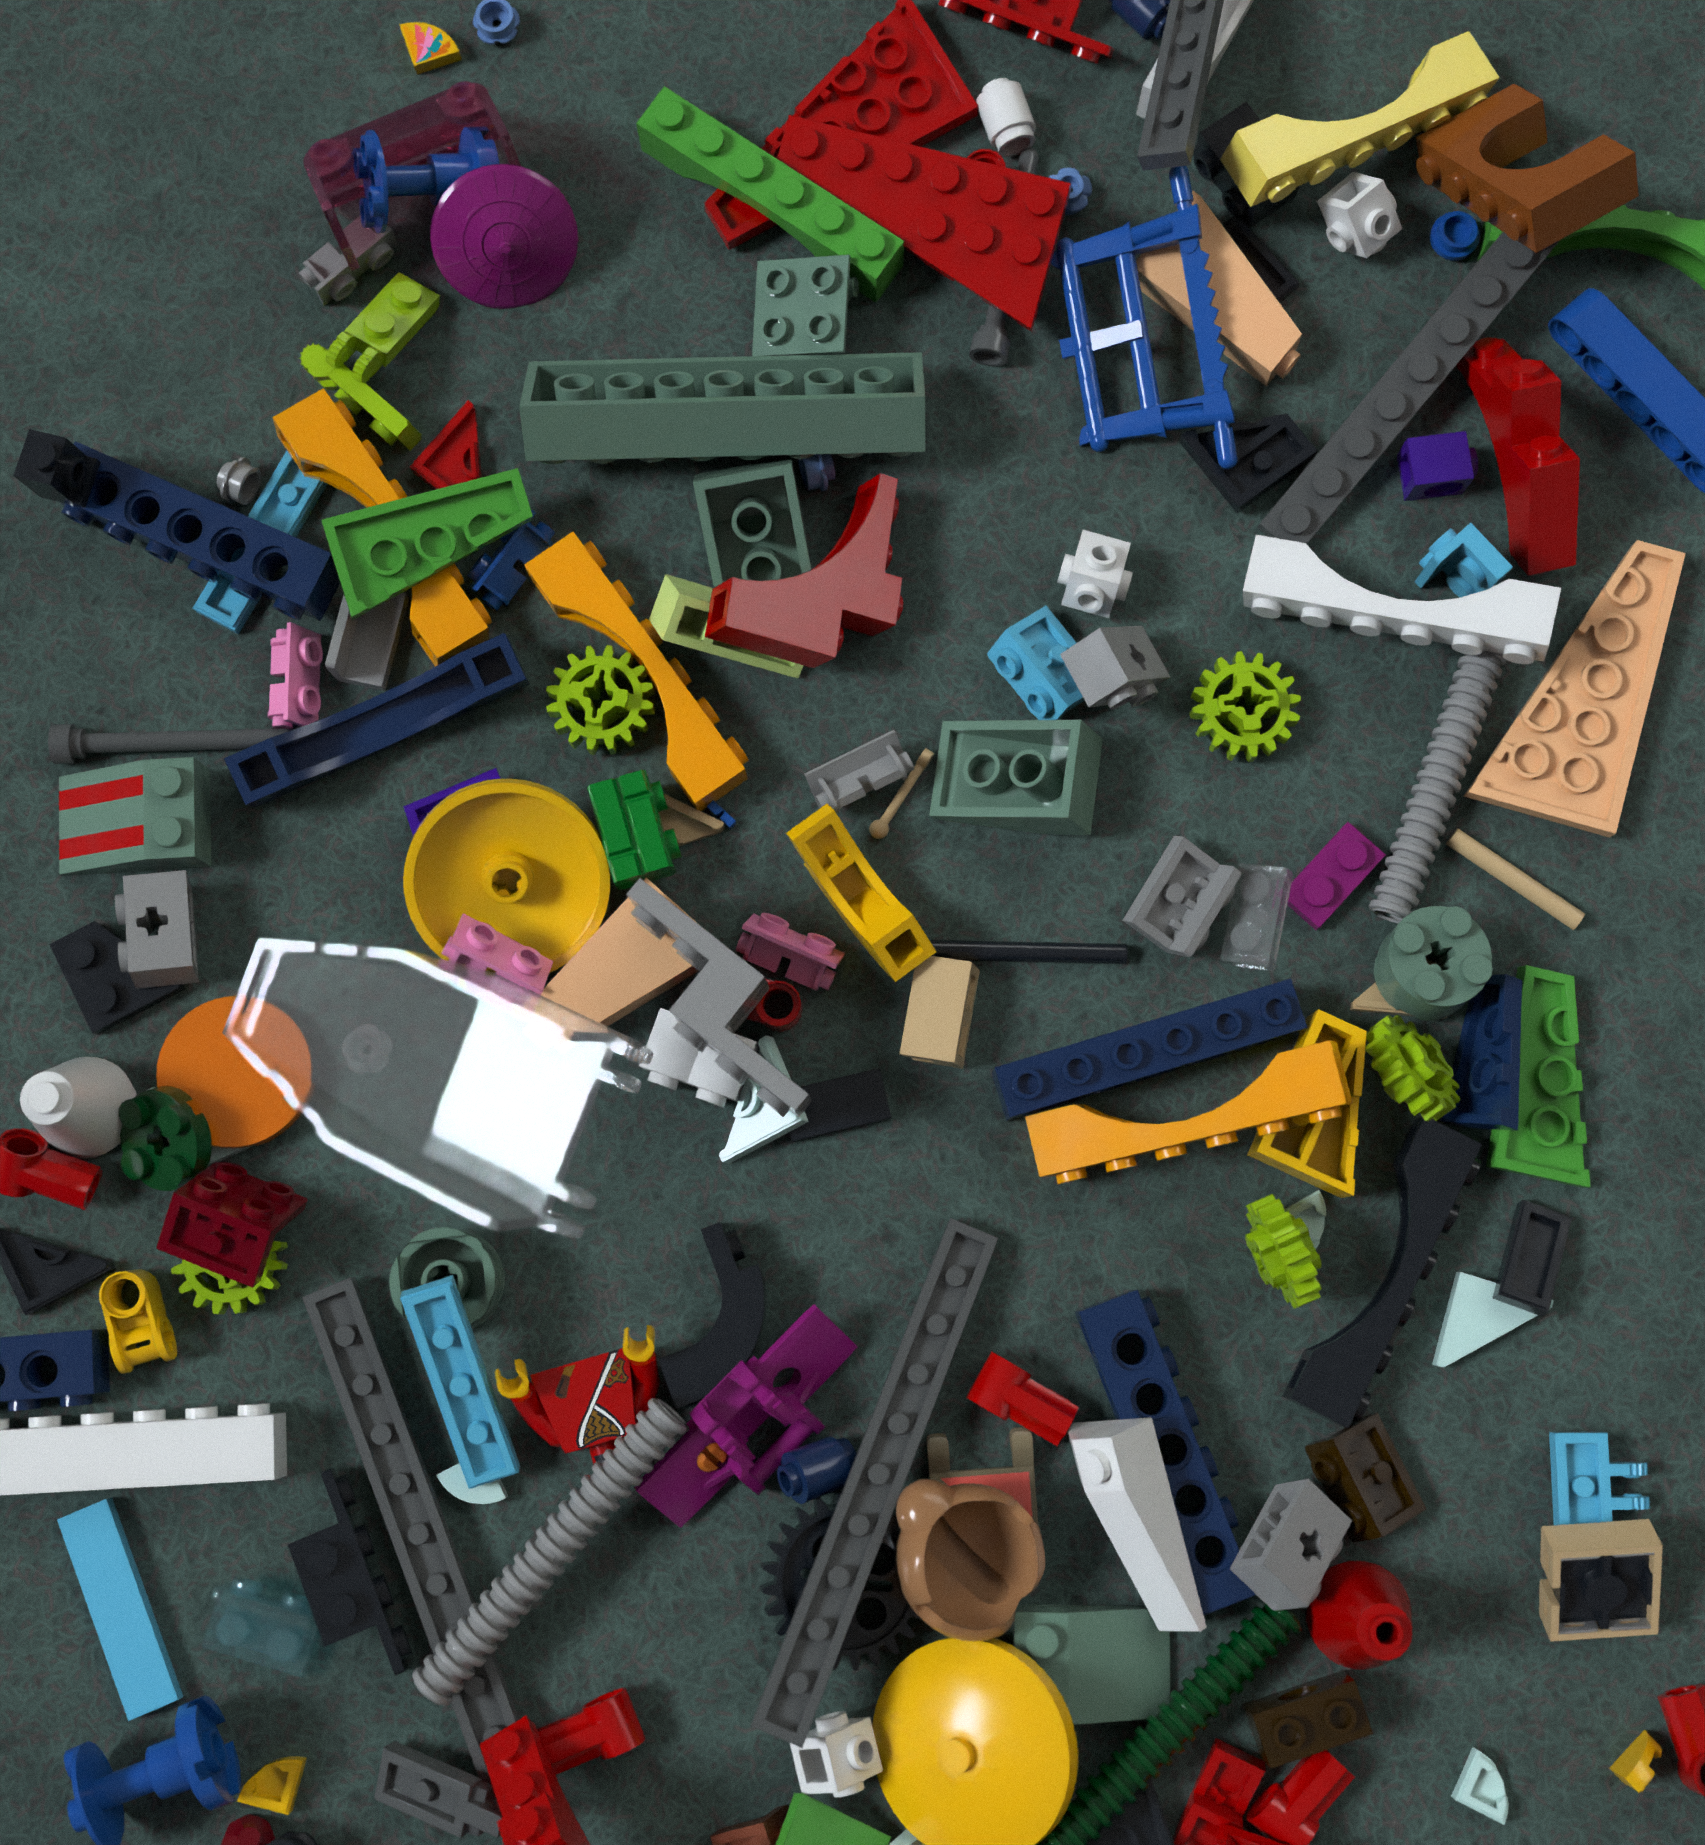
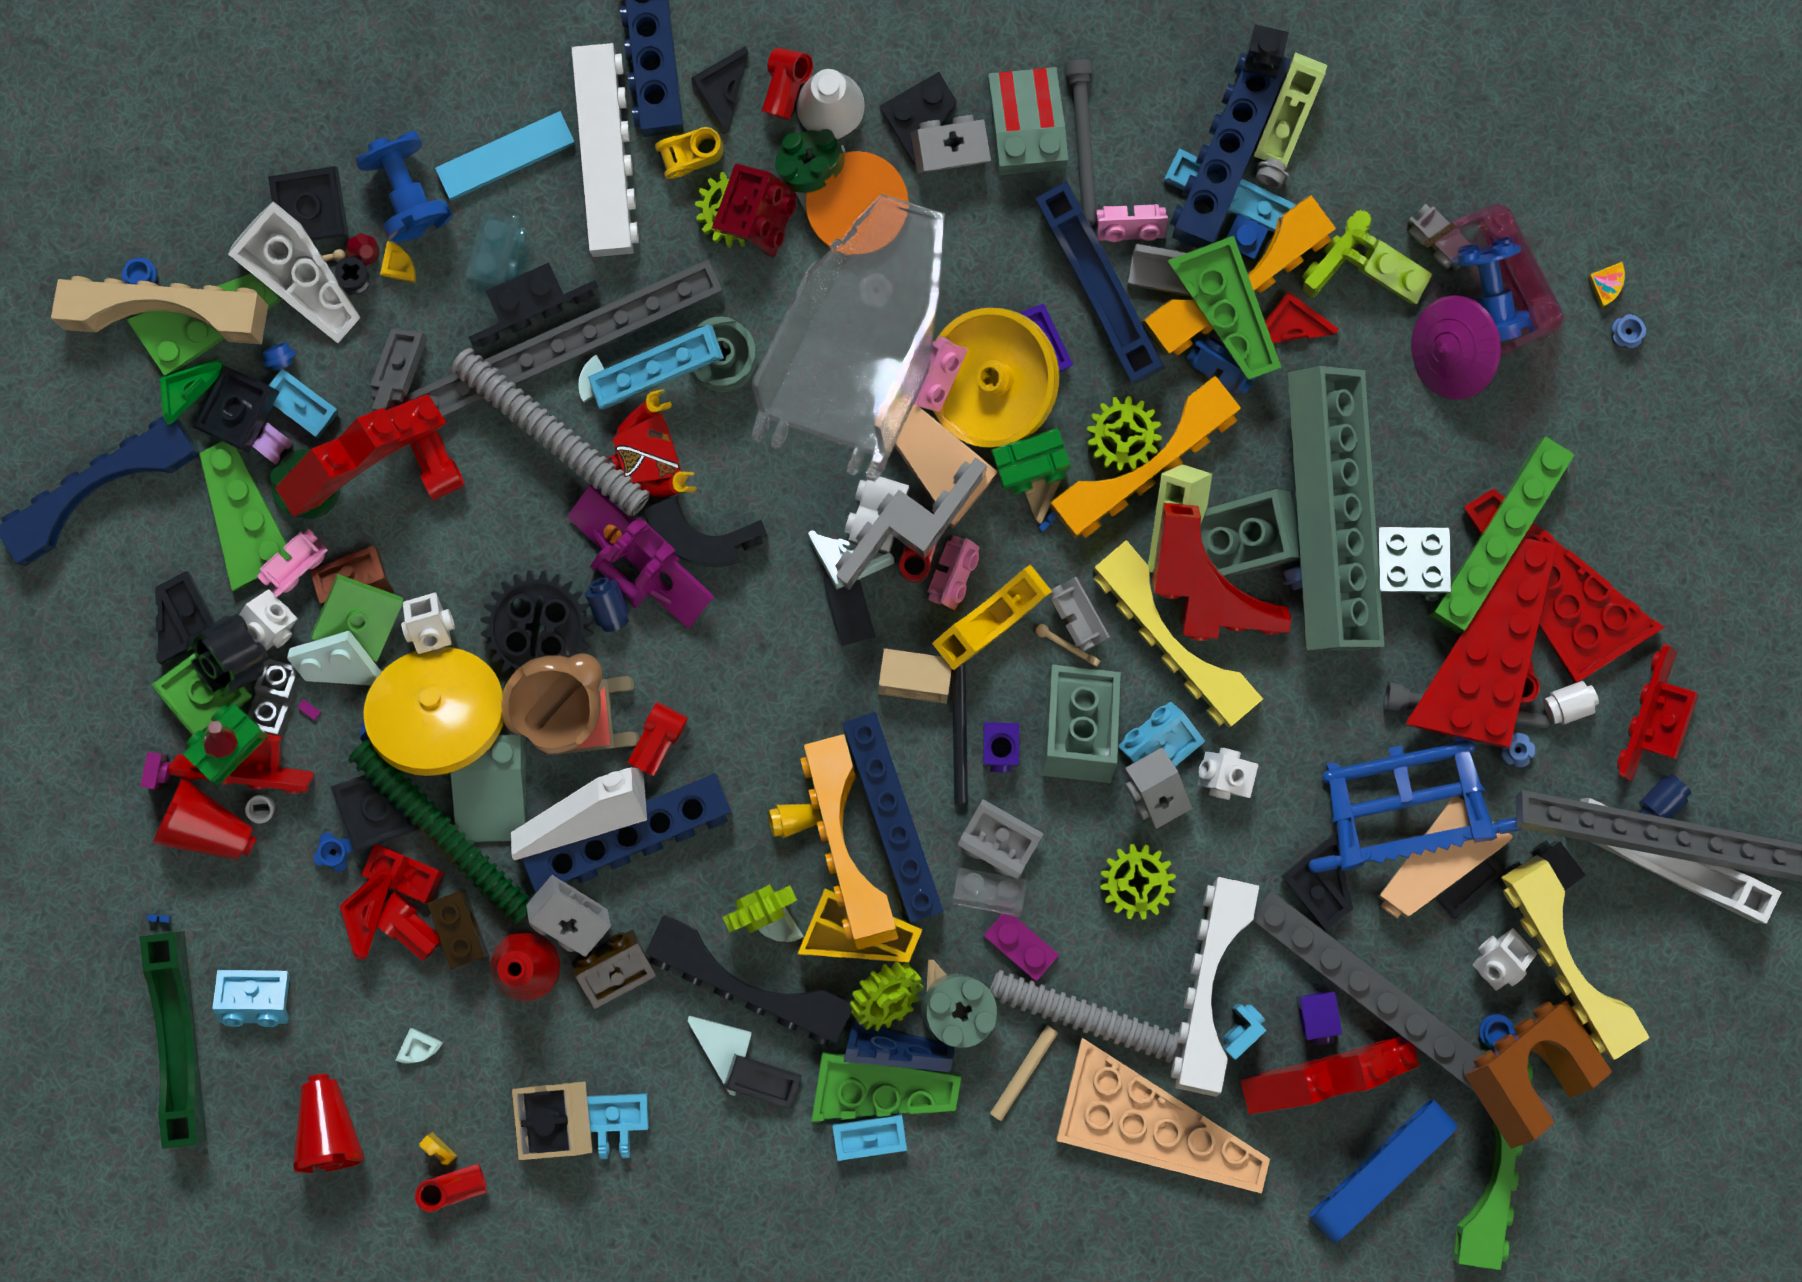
camera: 85 degrees right, 5 degrees up
(147, 445) = (1291, 109): none -> yellowish green slope
(320, 507) = (1248, 236): none -> blue plate
(815, 699) = (1129, 581): none -> light yellow arch
(873, 1485) = (603, 642): dark grey plate -> none
(1025, 901) = (1008, 731): none -> dark purple brick
(1146, 1200) = (792, 818): none -> yellow cone
(1612, 1102) = (869, 1137): none -> medium azure plate

